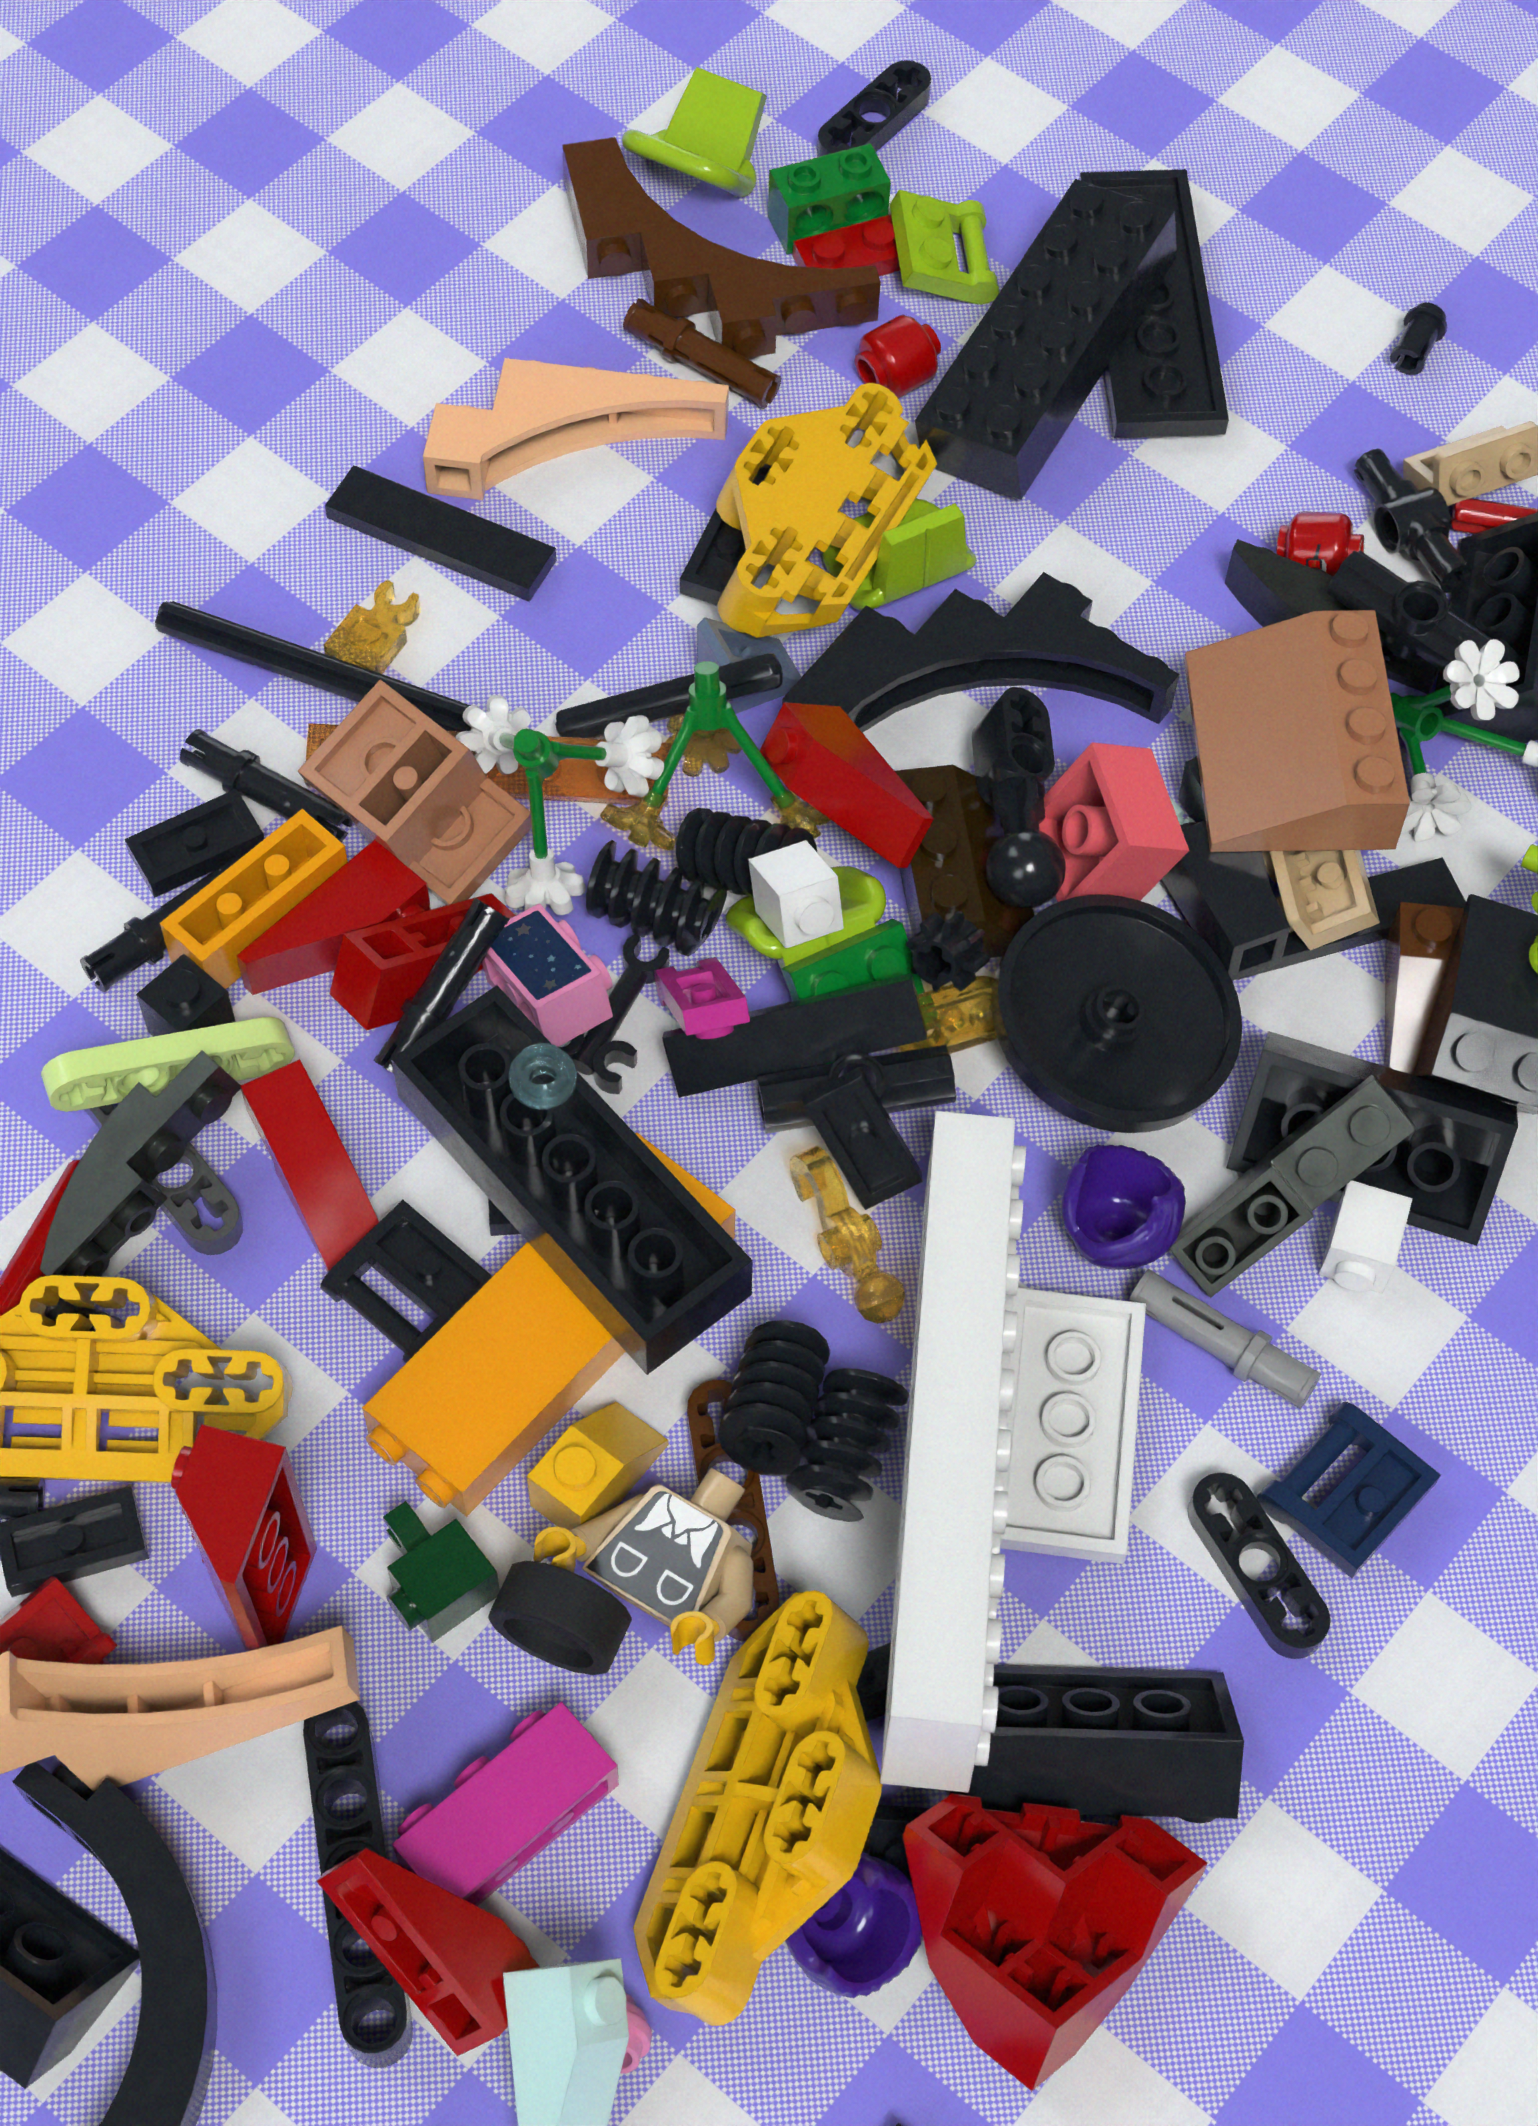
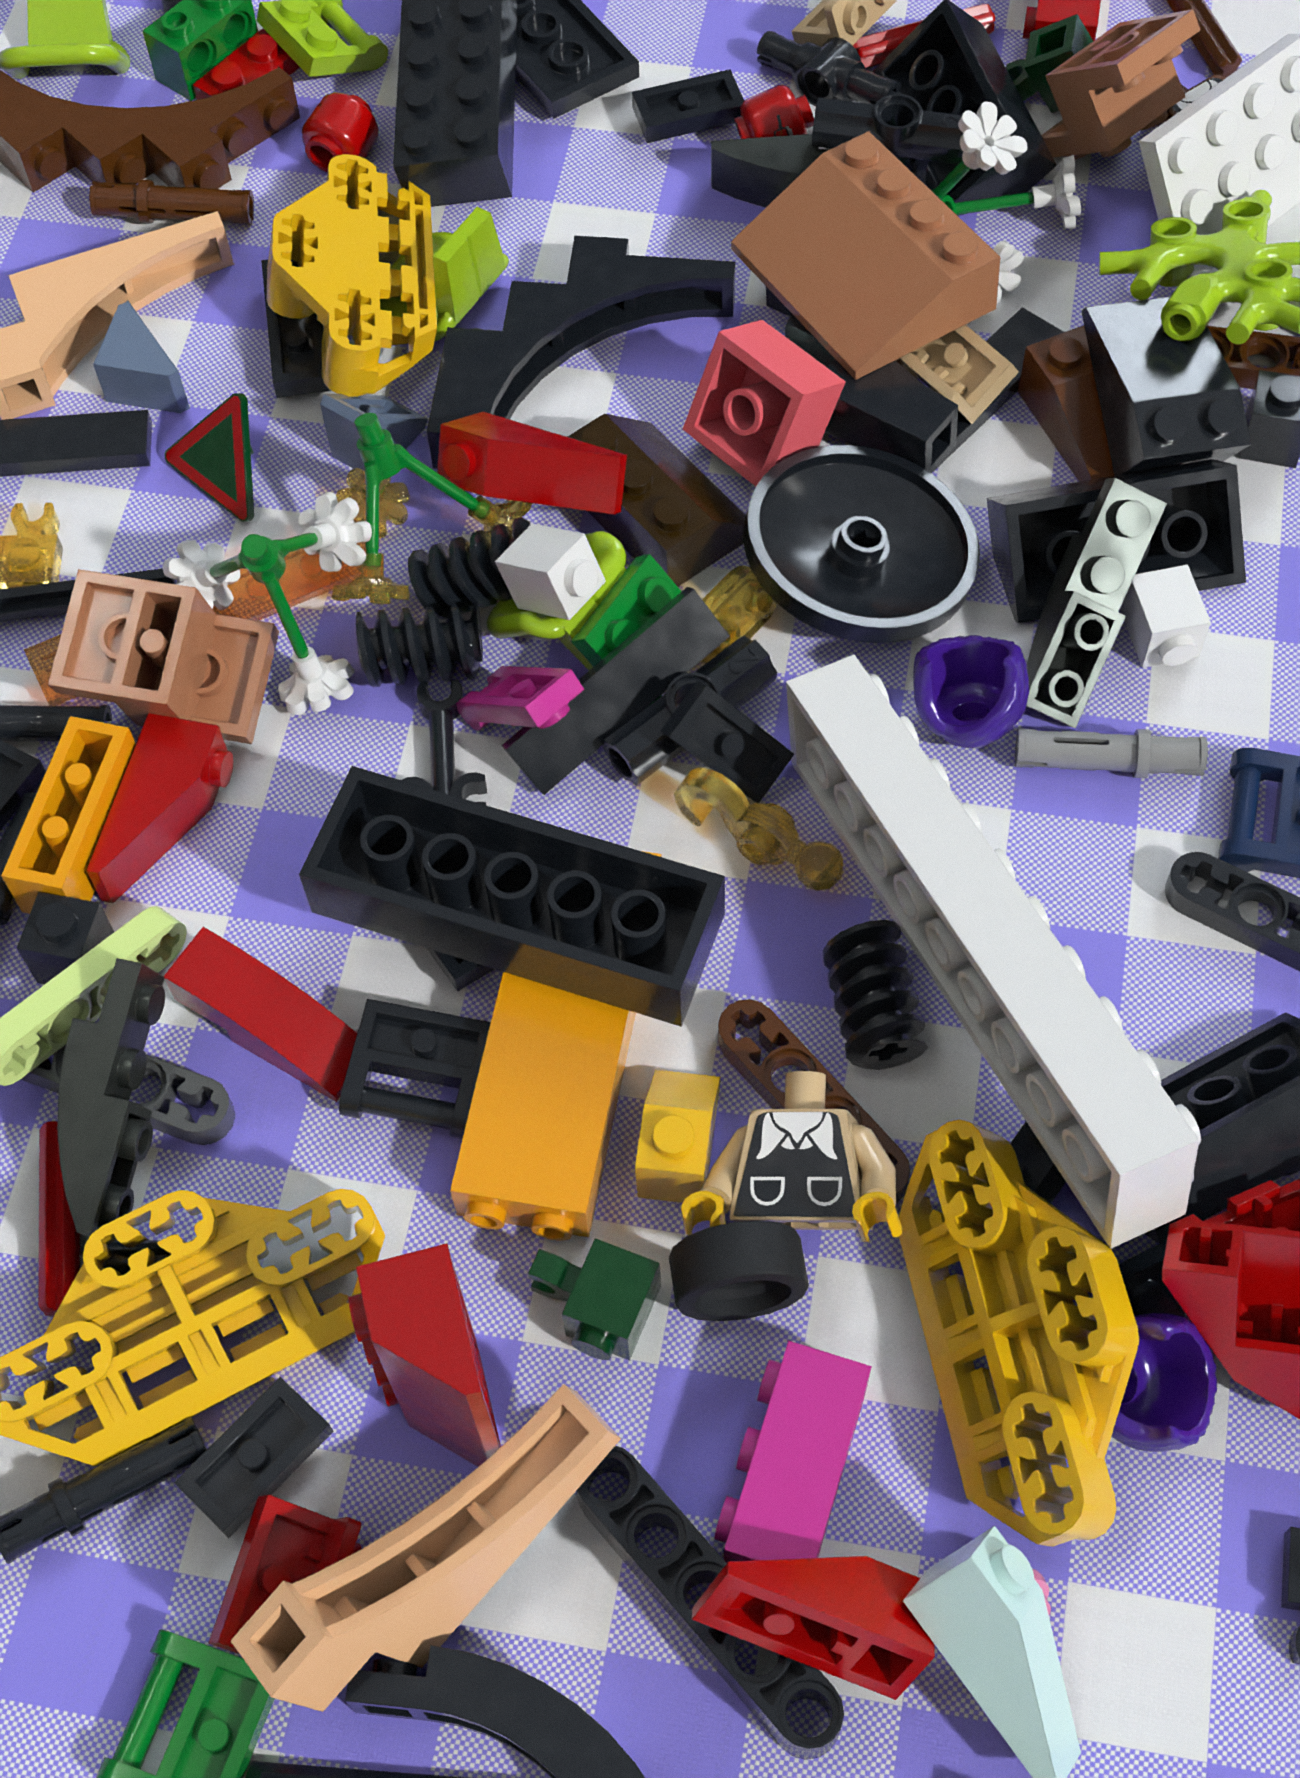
camera: 25 degrees left, 0 degrees up
(392, 959) = (246, 796): red slope -> none
(446, 980) = (288, 806): black pin -> none
(537, 1060) = (441, 802): clear light blue plate -> none
(549, 975) = (369, 738): brick -> none
(565, 499) = (135, 366): none -> sand blue slope
(586, 626) = (218, 457): none -> piece
(667, 698) = (332, 473): black axle -> none
(774, 1397) = (797, 988): black piece -> none
(948, 951) = (718, 556): black gear -> none
(1010, 765) = (654, 398): black beam -> none
(1073, 1424) = (1056, 865): white plate -> none
(1249, 488) = (687, 105): none -> black plate

